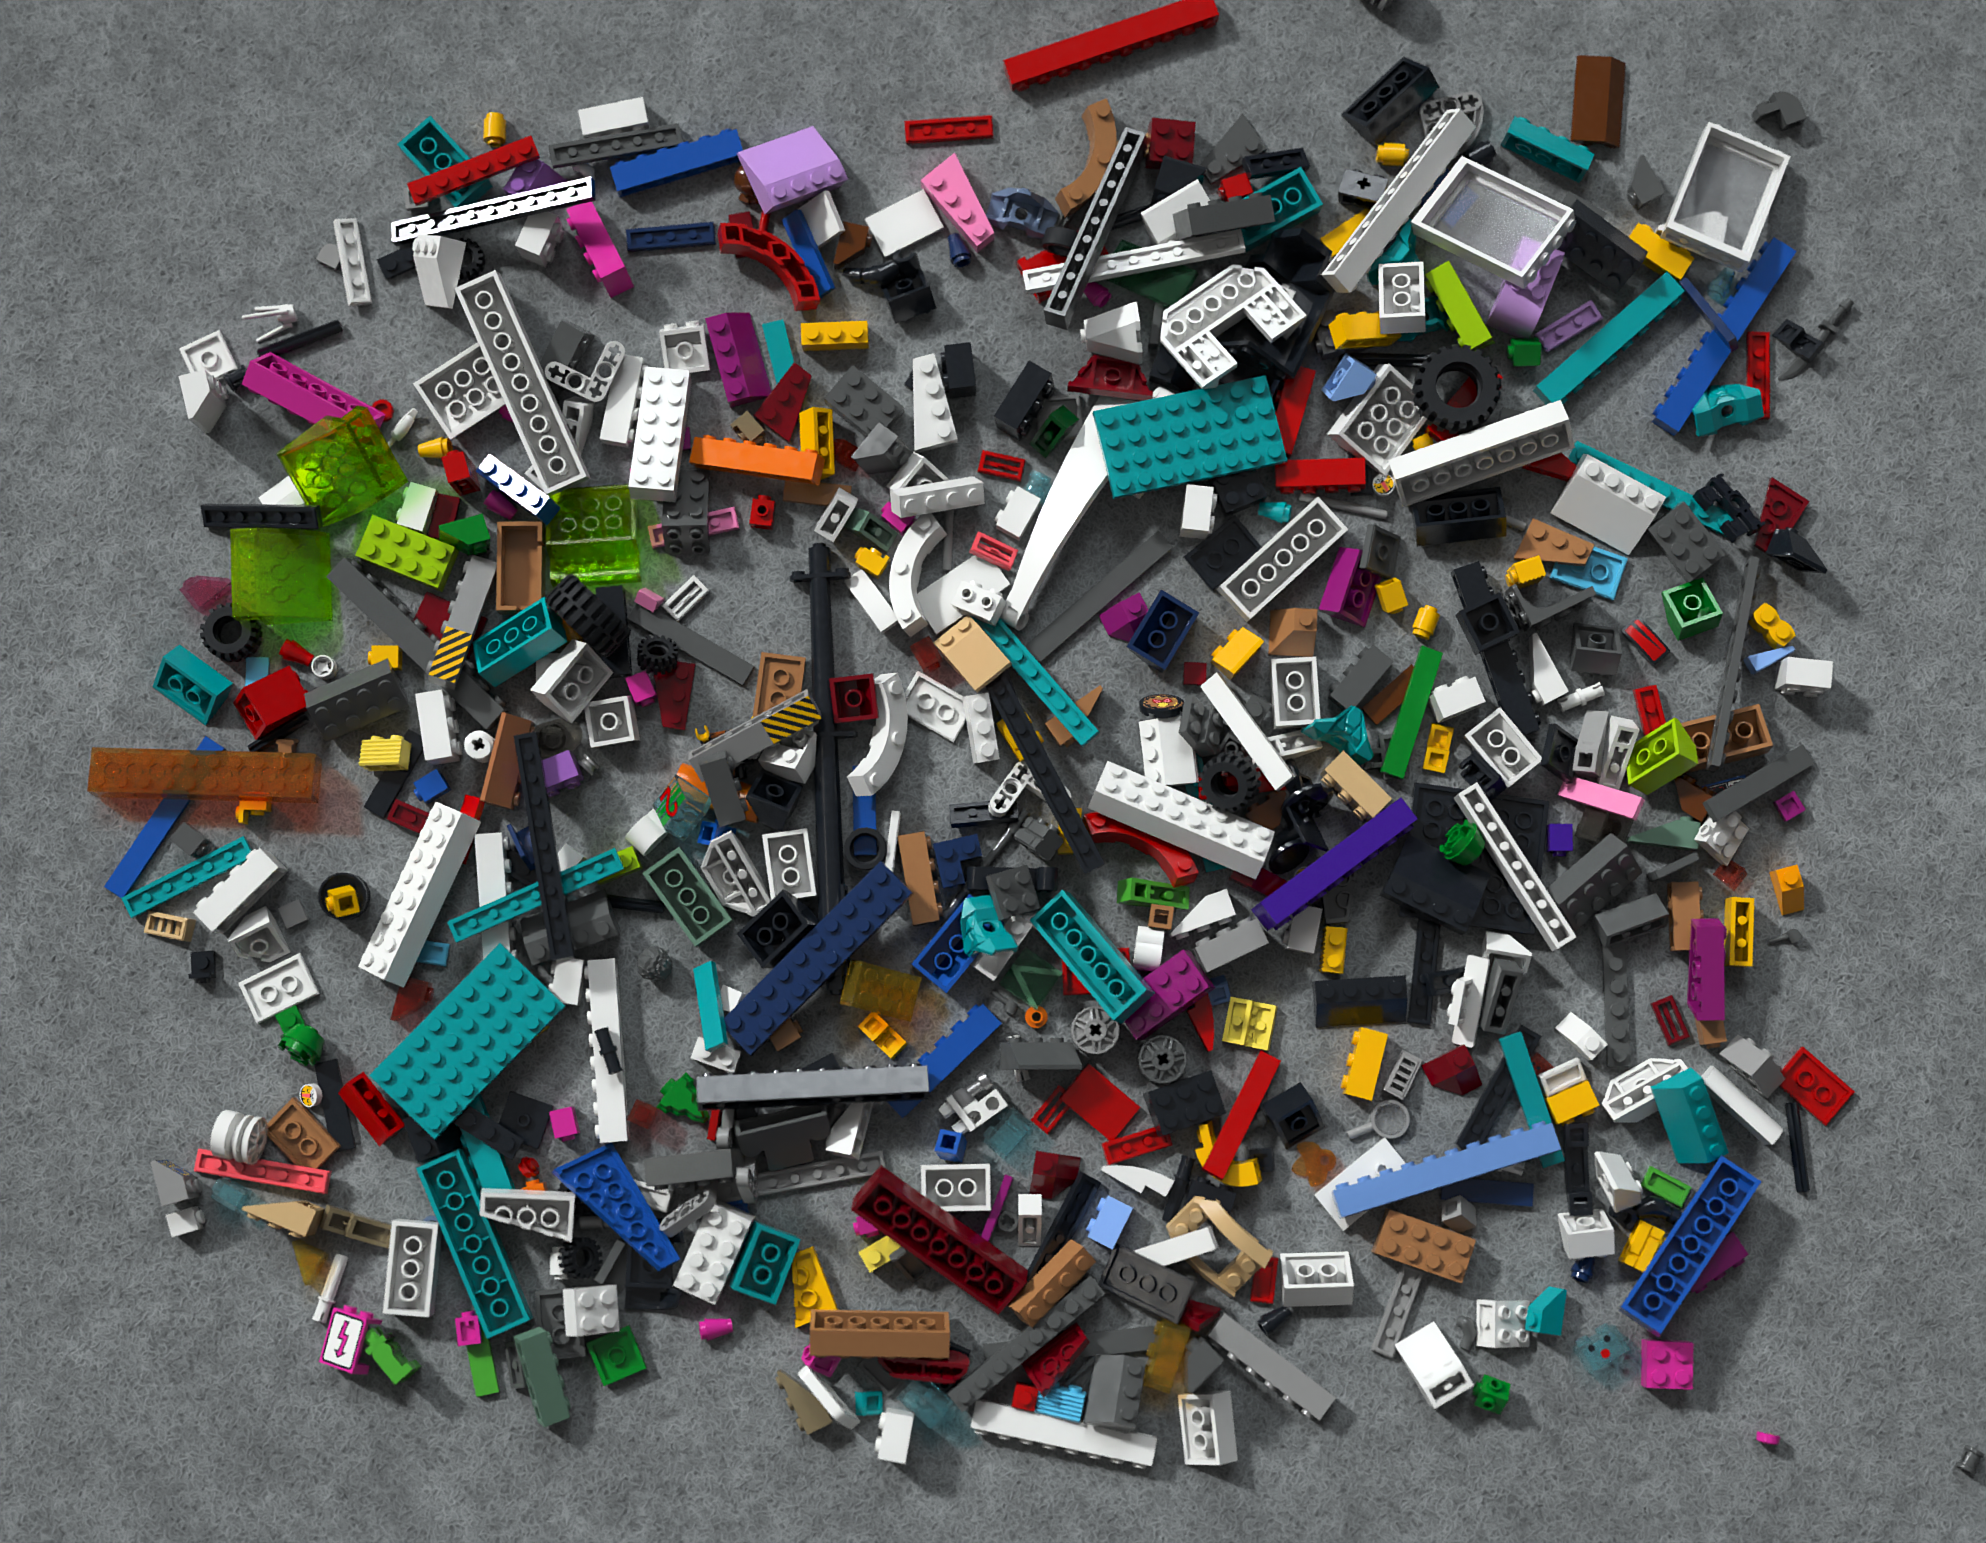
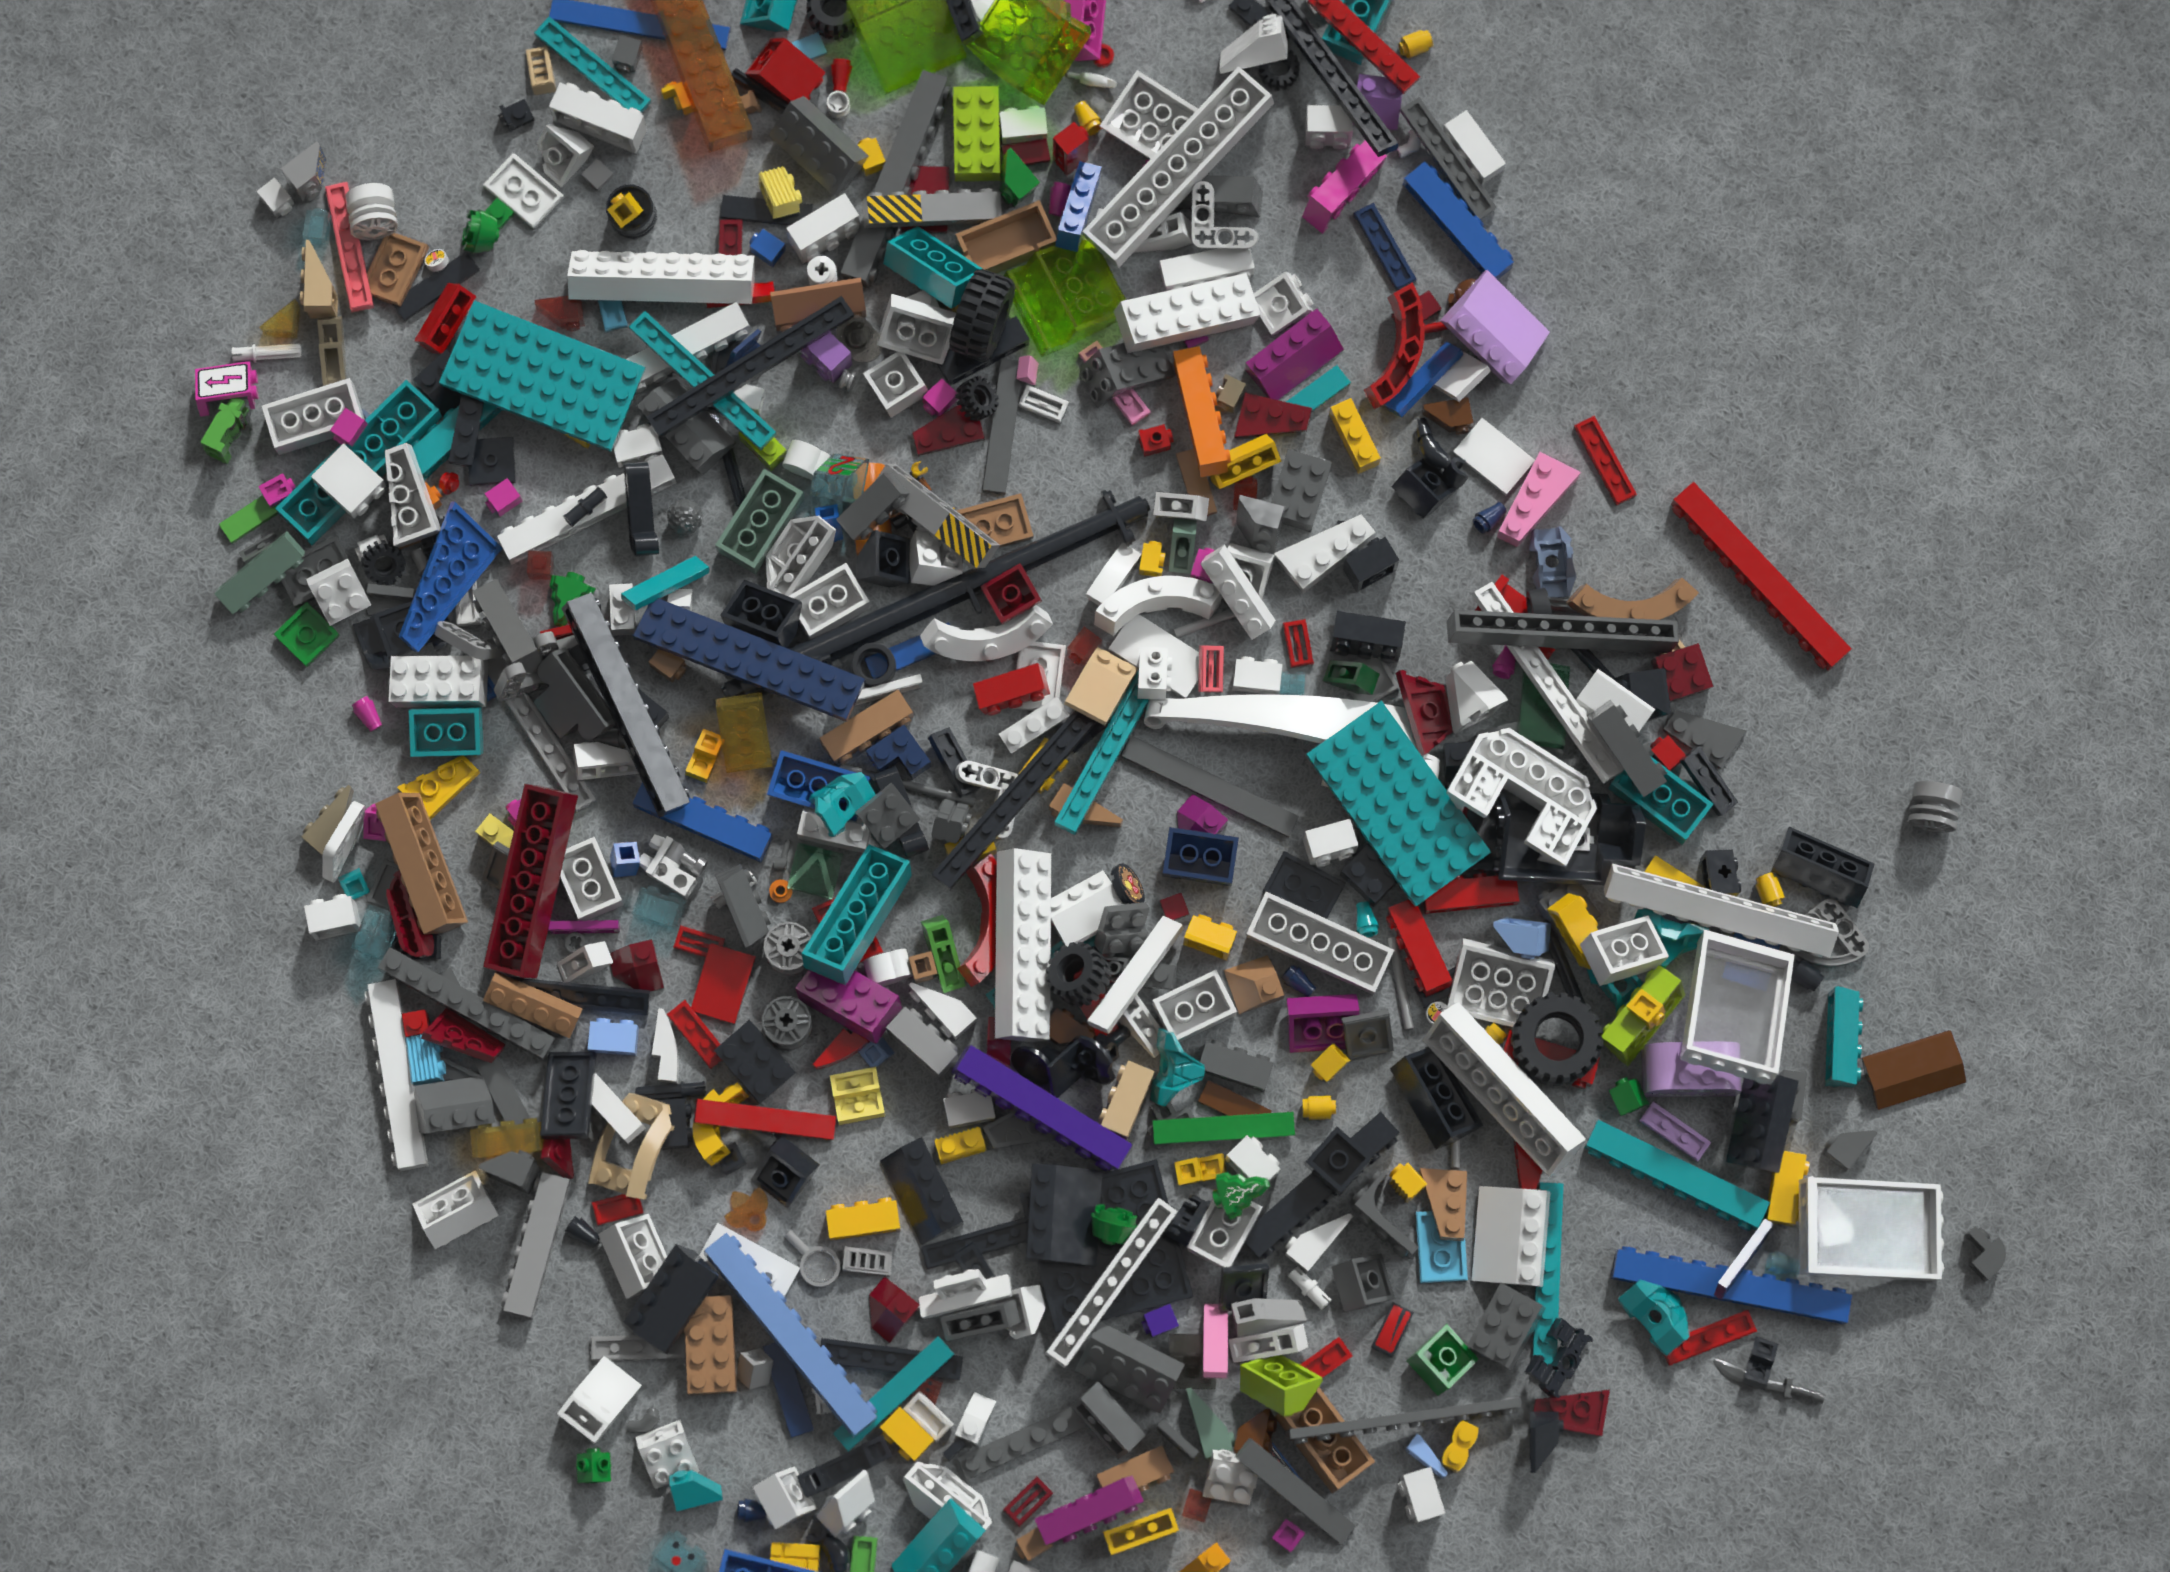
camera: 65 degrees right, 5 degrees down
(441, 1241) = (348, 427): none -> dark pink brick
(492, 1259) = (349, 481): none -> white brick
(615, 996) = (640, 509): none -> black beam
(940, 734) = (1011, 689): none -> red brick
(1303, 593) = (1297, 979): none -> dark blue cone
(1372, 1263) = (671, 1298): none -> black slope
(1462, 300) = (1647, 1009): none -> yellow bracket
(1481, 722) = (1237, 1192): none -> green rock
(1600, 1066) = (954, 1448): none -> black tile

